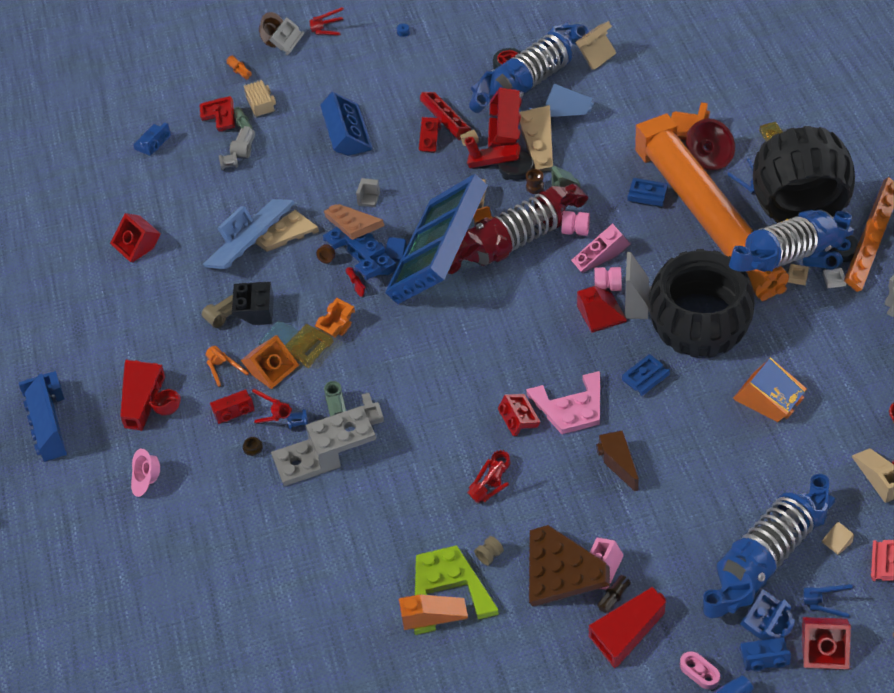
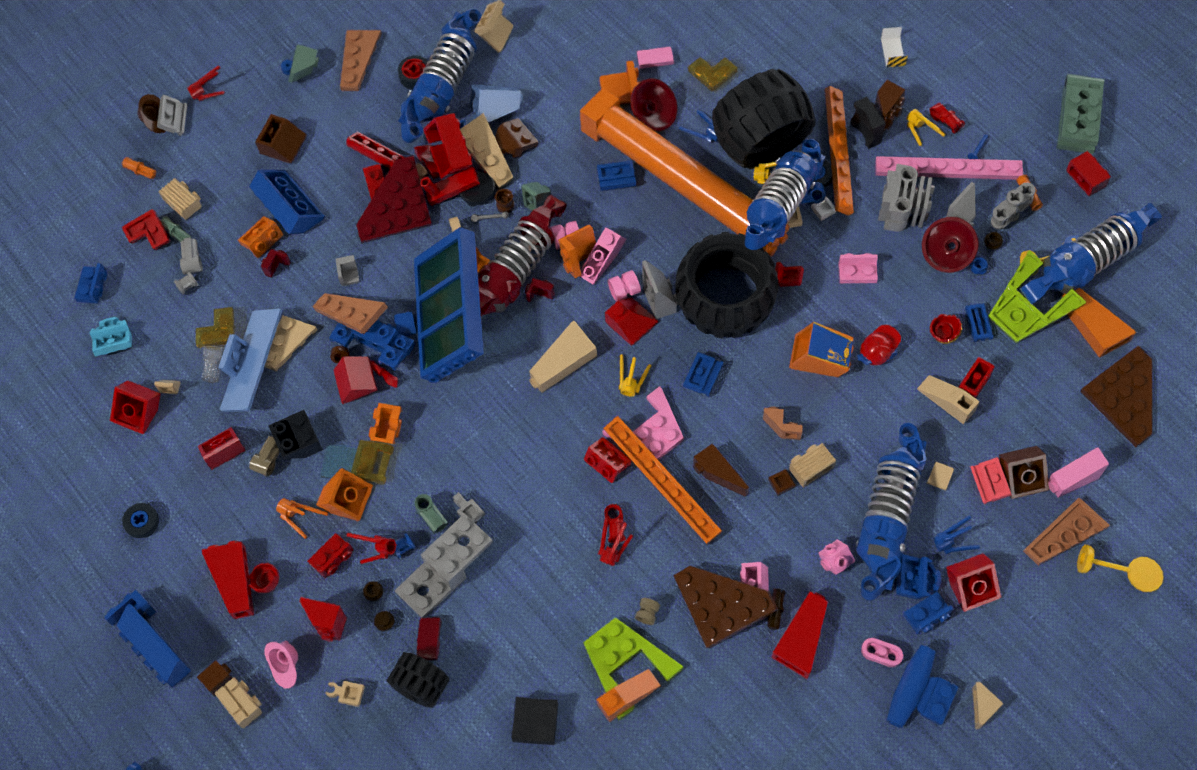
camera: 25 degrees left, 15 degrees up
(82, 464) = (215, 676): none -> reddish brown brick
(90, 490) = (238, 702): none -> tan brick
(98, 321) = (140, 529): none -> black bush
(148, 180) = (110, 336): none -> medium azure slope
(170, 232) = (167, 386): none -> tan slope
(185, 519) = (348, 694): none -> tan plate
(187, 294) = (221, 448): none -> red slope
(198, 449) = (325, 617): none -> red slope
(211, 232) = (212, 357): none -> clear piece
(228, 206) = (221, 330): none -> clear yellow plate
(249, 474) = (384, 621): none -> dark brown plate
(249, 525) = (418, 679): none -> black wheel
(278, 500) = (428, 638): none -> dark red slope
(309, 166) = (271, 262): none -> dark red bracket
(310, 146) = (261, 236): none -> orange bracket
(328, 275) = (354, 378): none -> red slope
(336, 602) = (535, 721): none -> black brick
(365, 78) = (280, 139): none -> reddish brown slope
(416, 28) = (303, 62): none -> sand green slope
(437, 156) = (396, 205): none -> dark red plate
(465, 38) = (357, 56): none -> nougat wing
(483, 128) = (425, 156): none -> red slope
(502, 187) = (474, 217): none -> light grey hinge
(520, 319) = (563, 357): none -> tan slope
(528, 257) = (542, 288): none -> dark red bracket
(560, 448) = (662, 480): none -> orange plate
(570, 136) = (515, 138): none -> reddish brown slope
(571, 360) = (629, 386): none -> yellow plant
(578, 233) = (576, 248): none -> orange bracket
(675, 490) = (781, 482): none -> reddish brown tile
(694, 569) = (836, 557): none -> bright pink brick
(696, 435) = (774, 418): none -> nougat slope
(712, 484) = (812, 464): none -> tan brick
(733, 112) = (655, 57): none -> bright pink tile
(768, 320) = (789, 275): none -> red bracket
(830, 406) = (880, 346): none -> red hair
(843, 336) = (858, 268): none -> bright pink bracket

